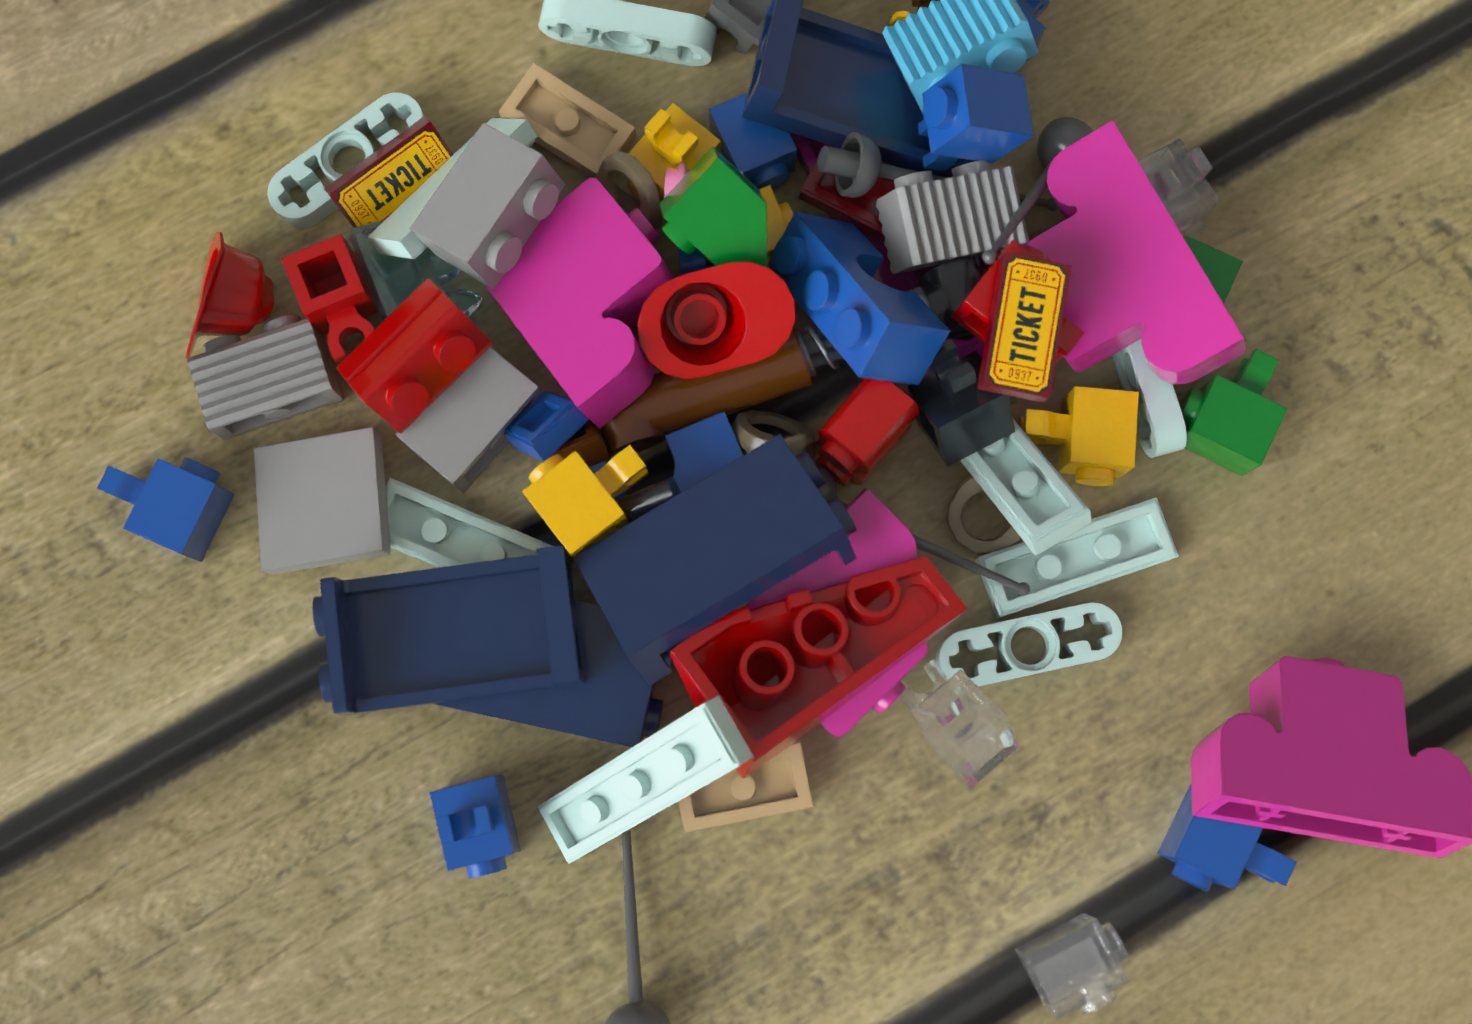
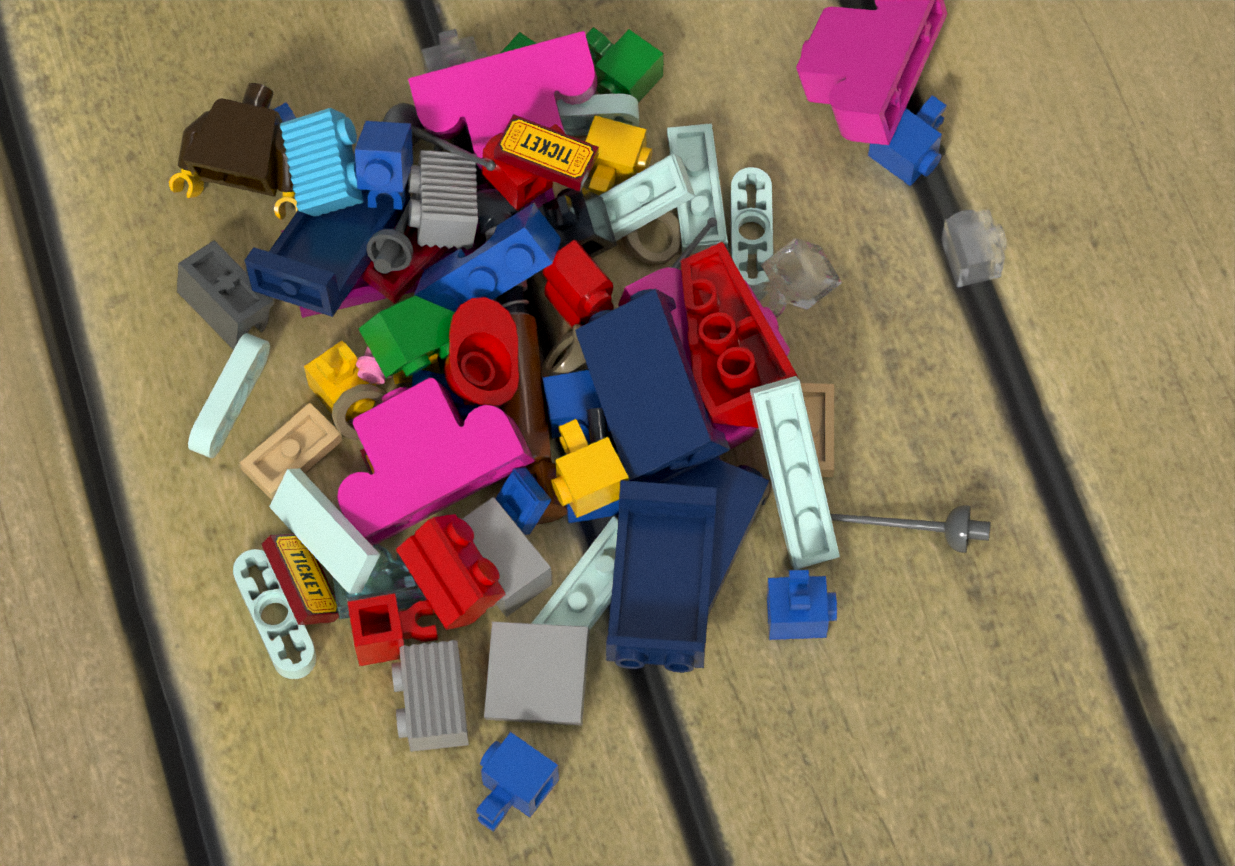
camera: 75 degrees left, 15 degrees down
(232, 293) = (362, 711): red piece -> none
(488, 205) = (358, 489): light grey brick -> none
(757, 149) = (343, 325): blue brick -> none

